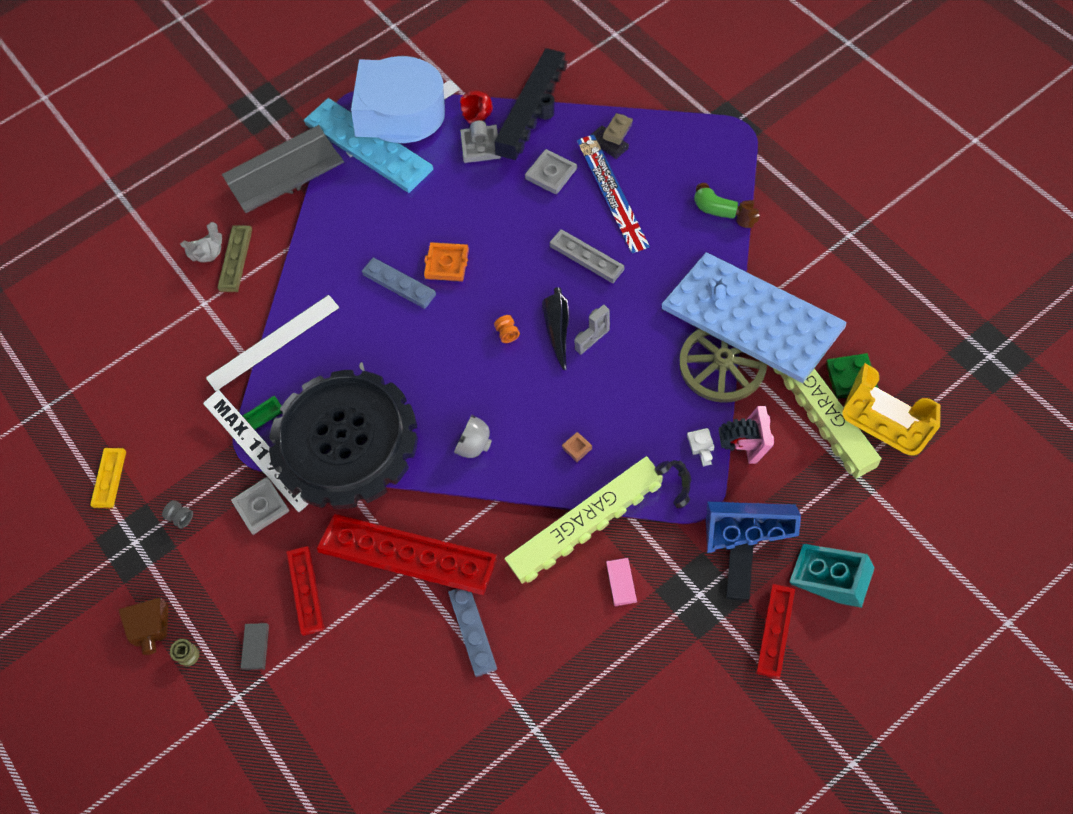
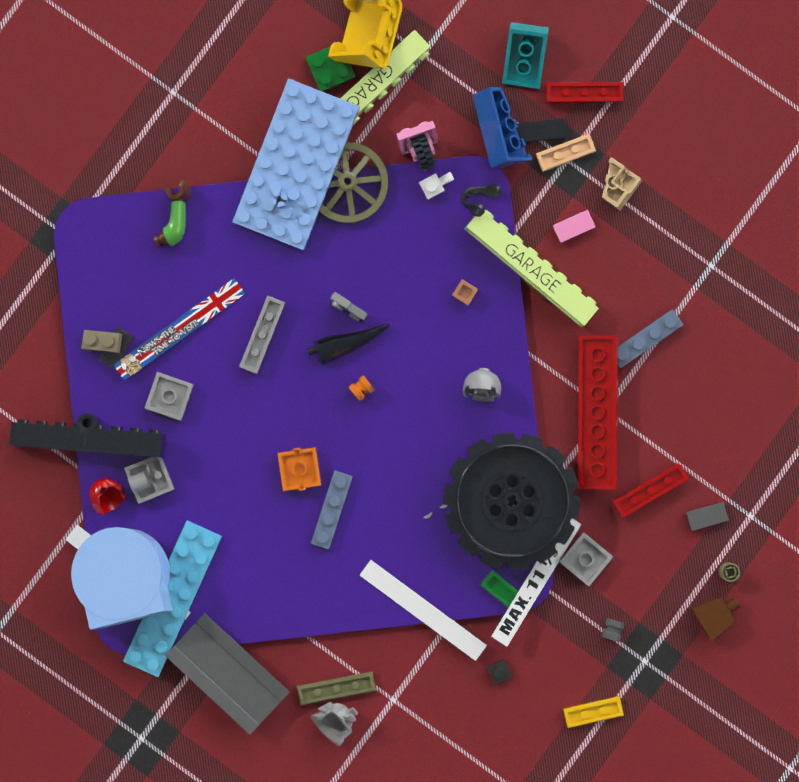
camera: 115 degrees left, 25 degrees up
(186, 399) = (499, 671): none -> pearl dark grey plate
(656, 644) = (619, 184): none -> tan slope
(708, 594) = (565, 152): none -> light nougat tile

